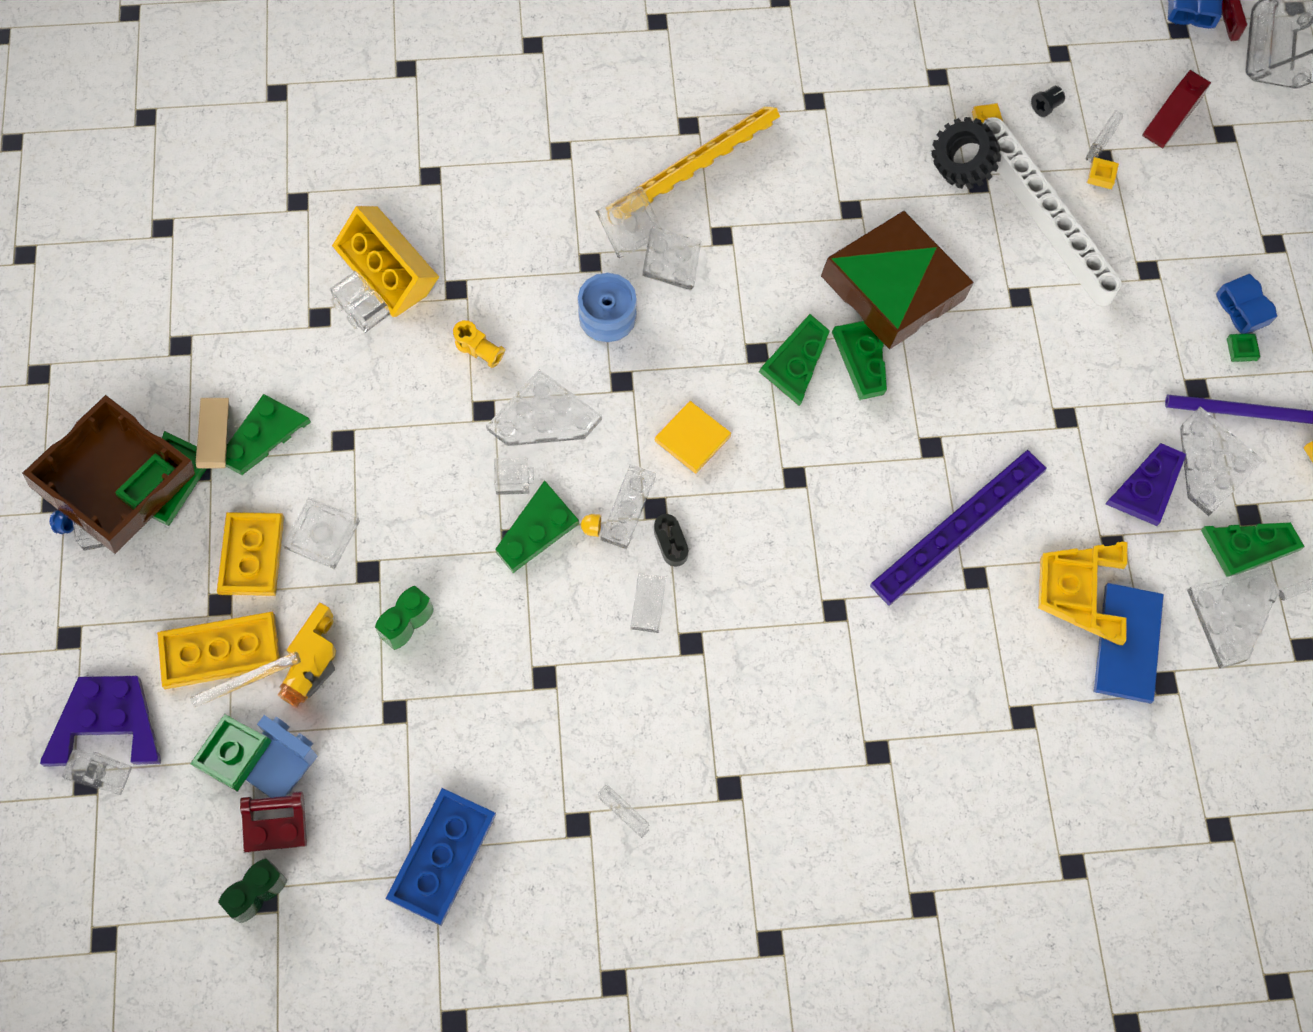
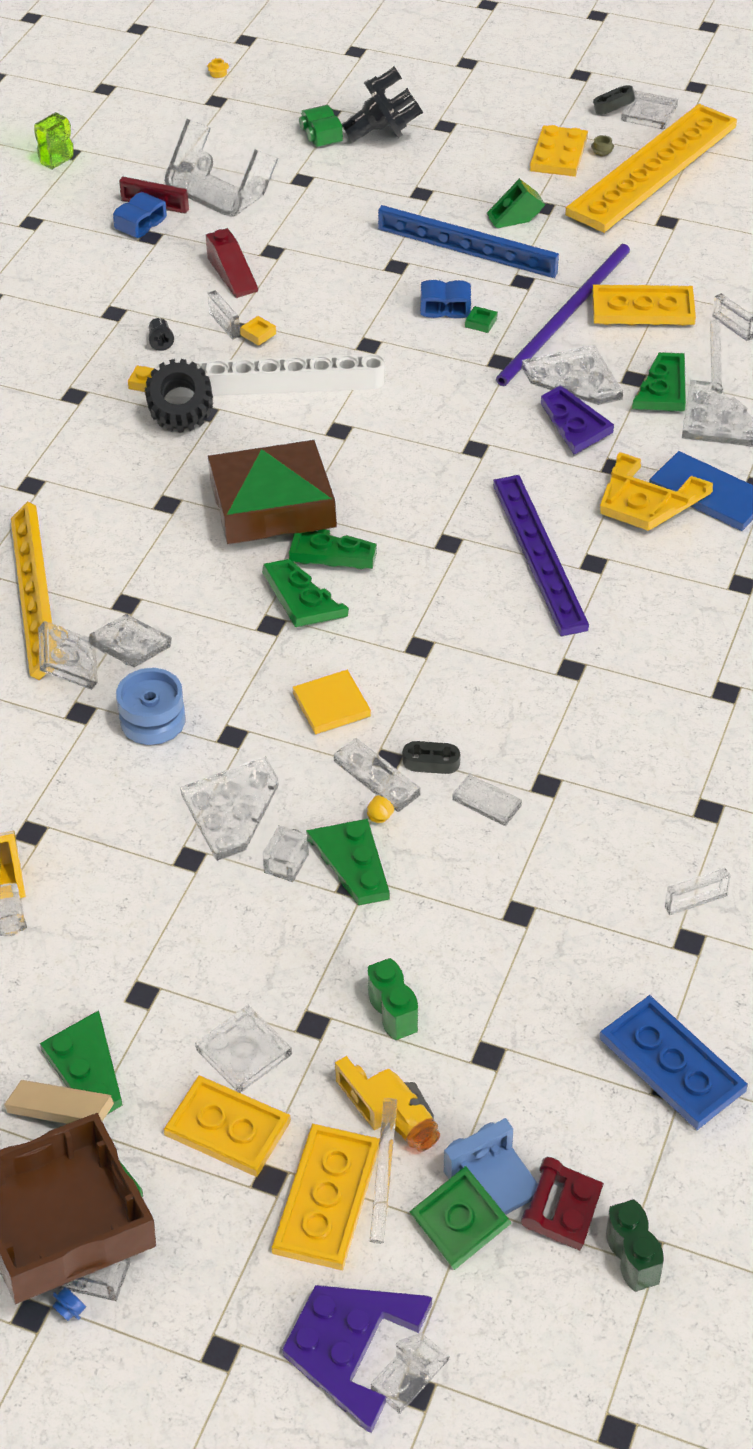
camera: 60 degrees left, 20 degrees down
(144, 481) = (87, 1180): green tile -> none
(477, 343) = (113, 830): yellow connector -> none

